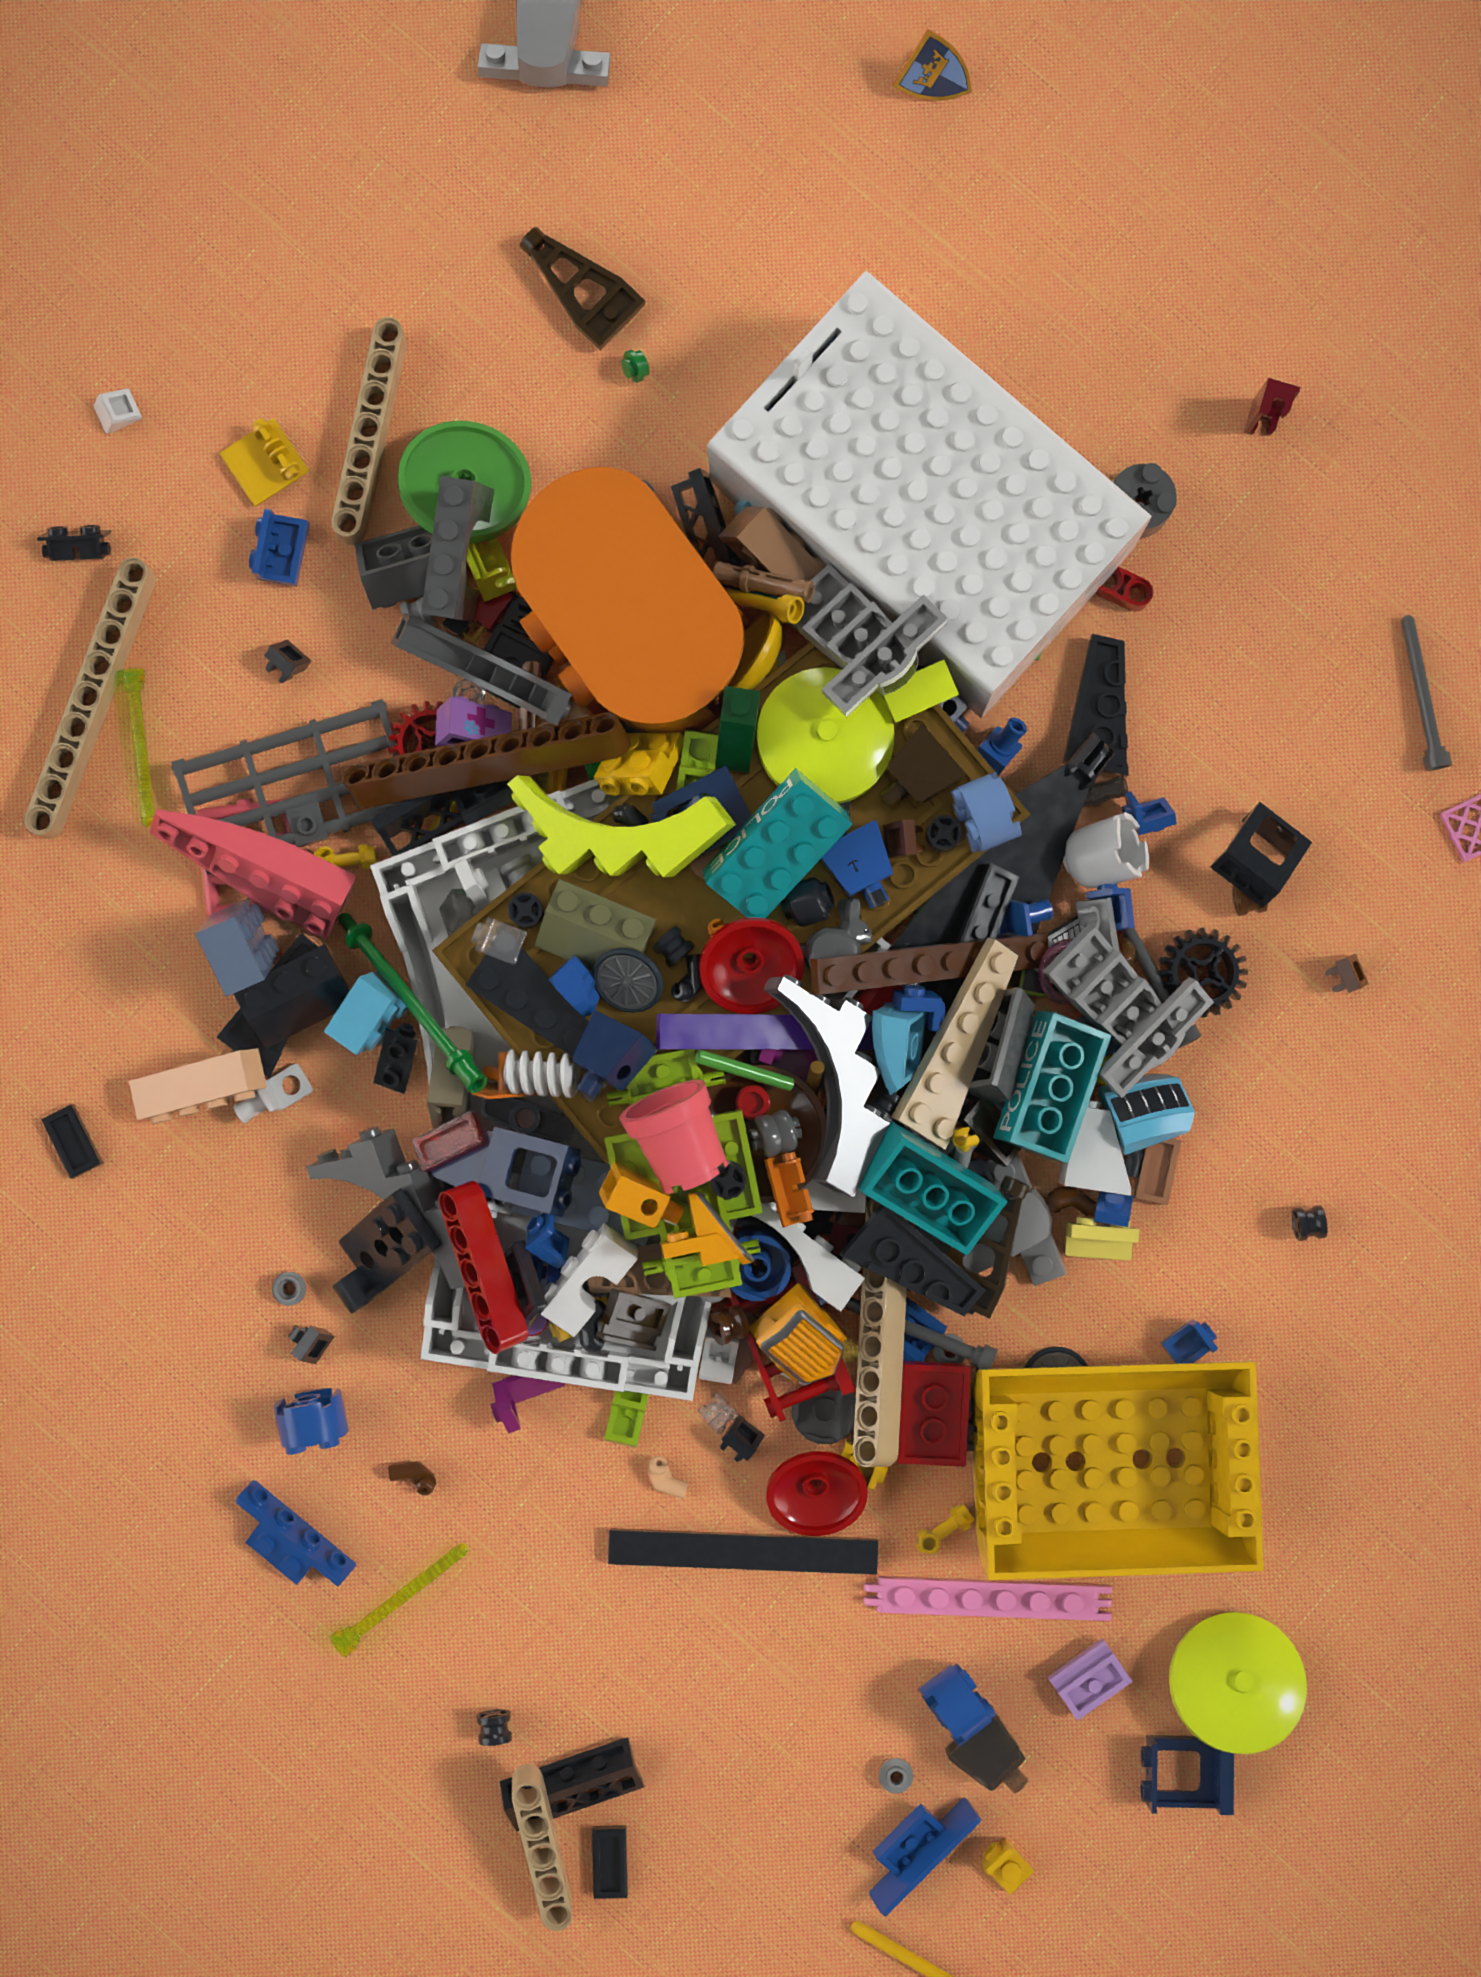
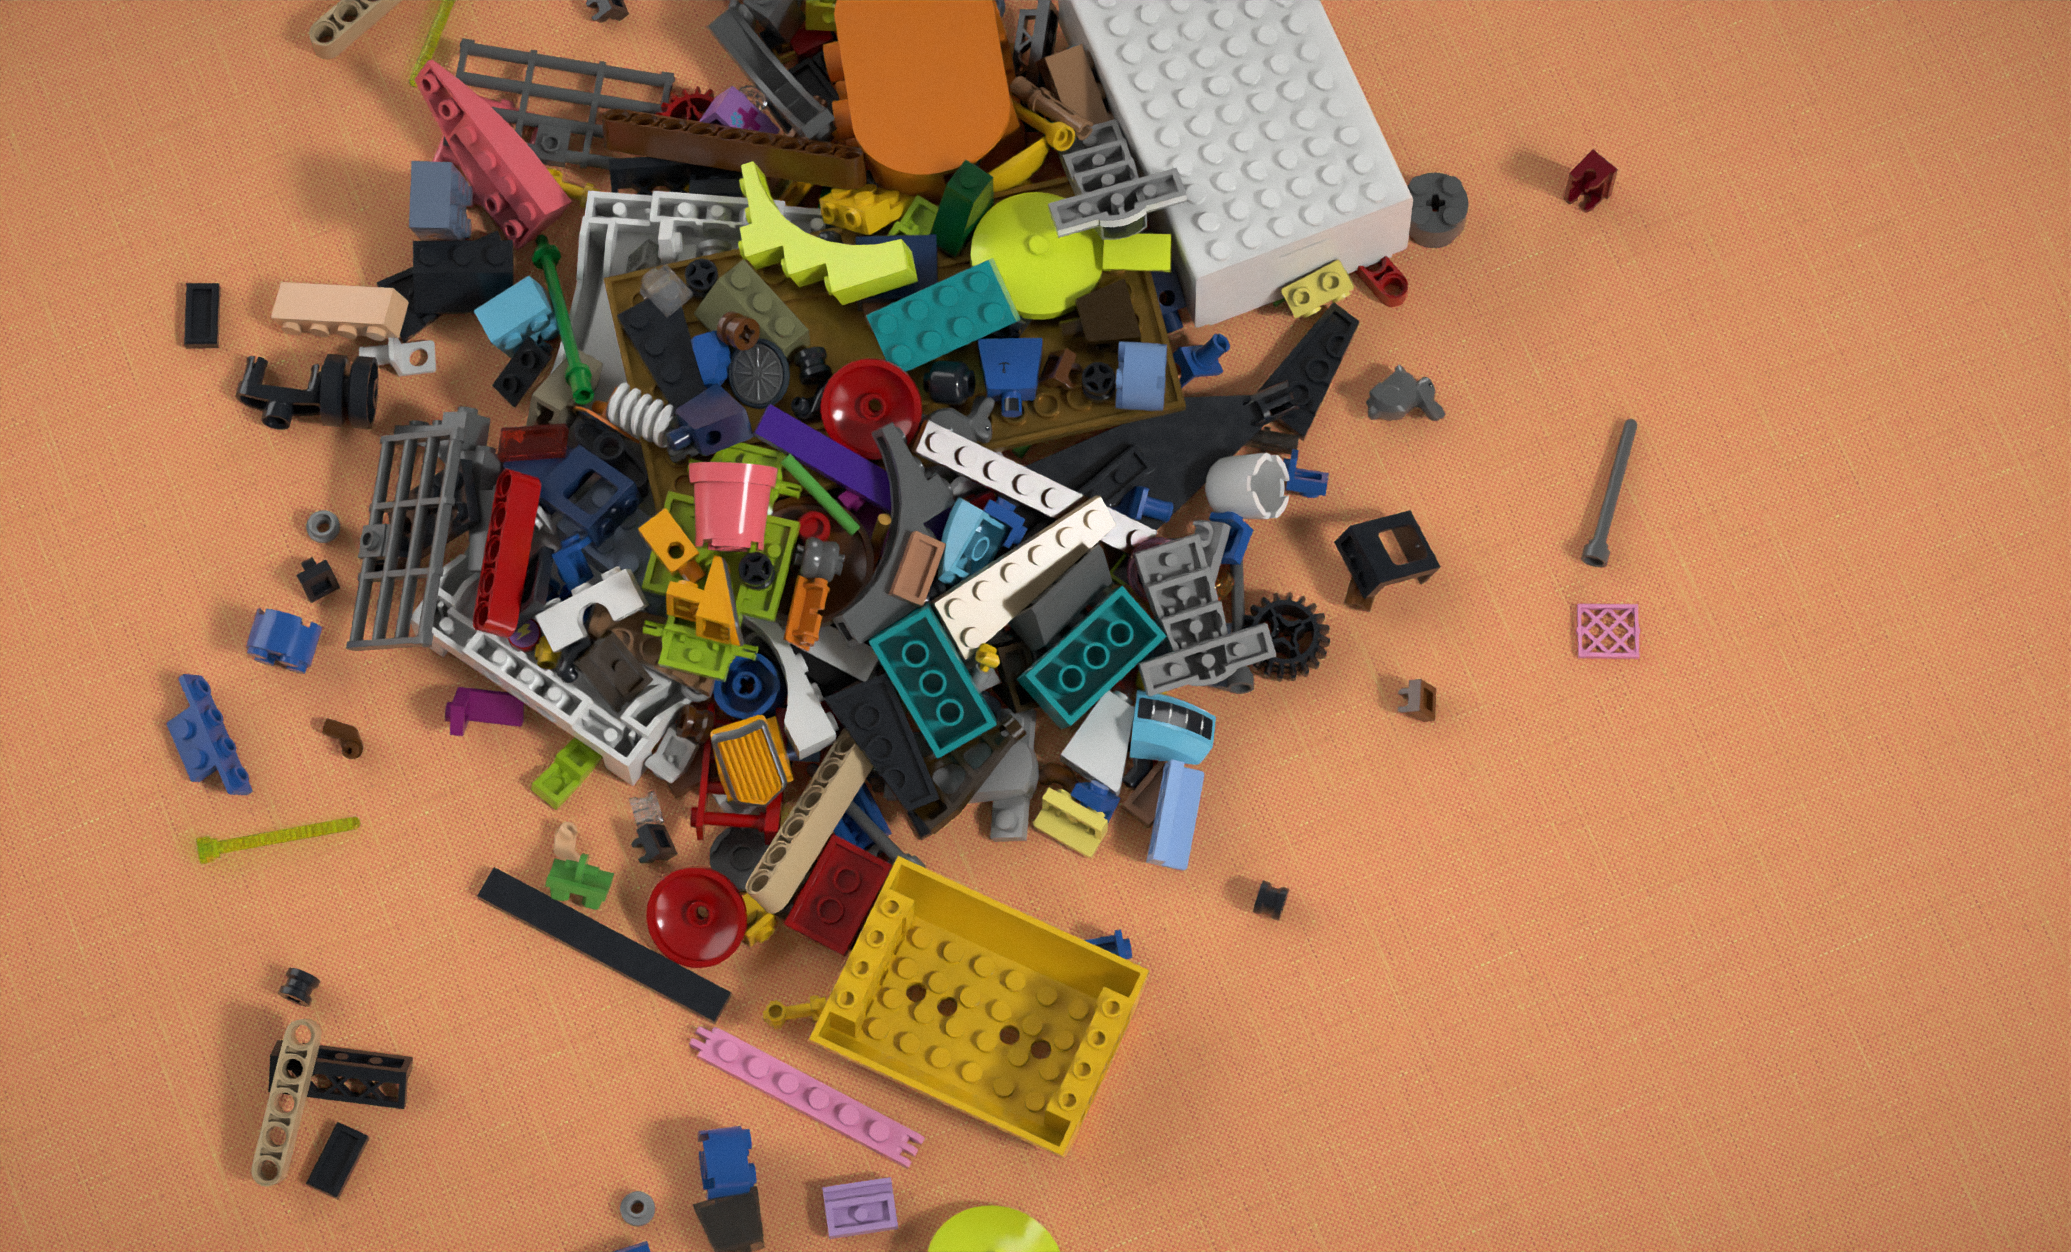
camera: 30 degrees right, 15 degrees down
(190, 1193) = (277, 402): none -> black connector
(247, 1157) = (349, 391): none -> black wheel
(358, 1292) = (384, 540): none -> dark grey door
(591, 954) = (738, 330): none -> reddish brown wheel
(694, 1509) = (579, 879): none -> bright green hips
(871, 1099) = (917, 569): none -> nougat tile
(1079, 632) = (1318, 288): none -> light yellow bracket
(1187, 1188) = (1175, 816): none -> light blue panel
(1194, 692) = (1400, 395): none -> dark grey animal

